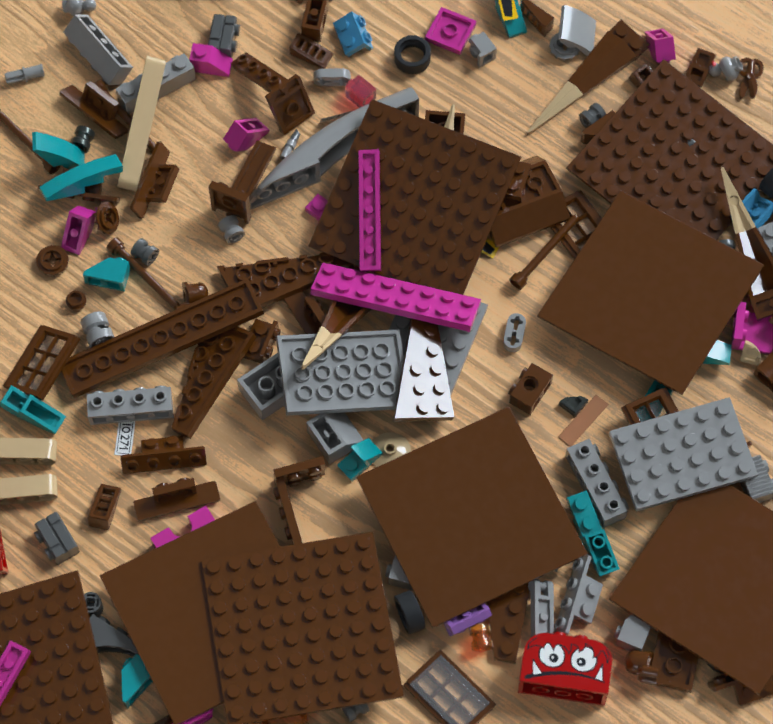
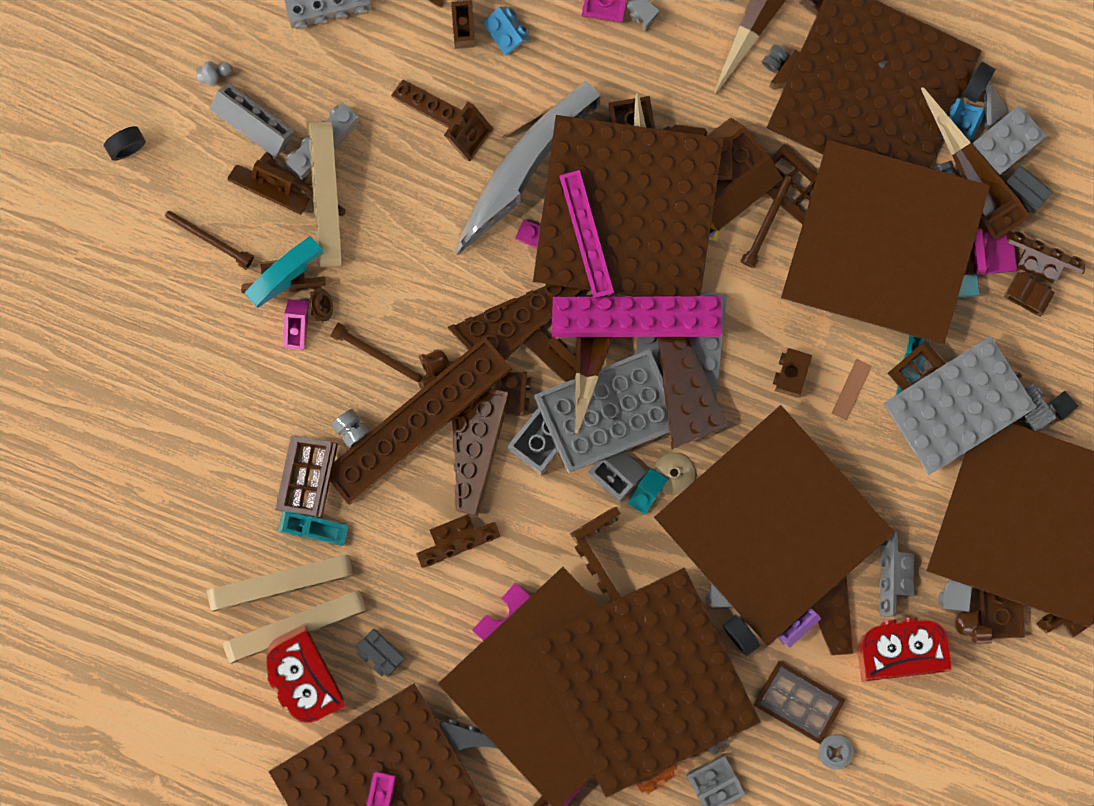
camera: 15 degrees left, 15 degrees up
(24, 74) = (183, 165): light grey axle -> none
(44, 257) = (271, 360): reddish brown gear -> none
(57, 151) = (251, 249): teal slope -> none
(76, 300) = (317, 400): reddish brown plate -> none
(83, 138) = (268, 223): pearl dark grey wheel -> none
(94, 608) = (440, 711): dark grey wheel -> none
(102, 519) = (415, 624): reddish brown slope -> none
(109, 274) = (343, 363): teal slope -> none
(124, 438) = (409, 518): white sticker -> none
(129, 405) = (408, 497): light grey brick -> none
(134, 680) = (499, 771): teal slope -> none
(144, 251) = (370, 330): dark grey wheel -> none
(156, 181) = (358, 250): reddish brown bracket -> none
(176, 498) = (482, 581): reddish brown bracket -> none
(210, 60) = (370, 100): dark pink slope -> none
(223, 33) = (374, 70): dark grey brick -> none
(232, 230) = (449, 281): light grey wheel -> none
(236, 199) = (444, 252): reddish brown bracket -> none
(245, 133) = (431, 173): dark pink slope -> none
(290, 144) = (479, 172): light grey piece -> none
(313, 46) = (451, 64): reddish brown slope -> none
(331, 77) = (499, 85): light grey beam -> none
(360, 91) = (533, 94): clear pink brick -> none
(412, 67) = (574, 21): black tyre -> none
(481, 638) = (814, 640): clear orange wheel -> none
(519, 333) = (765, 316): light grey beam -> none
(542, 607) = (864, 596): light grey plate -> none
(573, 404) = (837, 376): pearl dark grey tile -> none
(592, 534) = (891, 507): teal slope -> none
(595, 478) = (882, 453): light grey brick -> none
(750, 354) = (996, 277): tan tile -> none

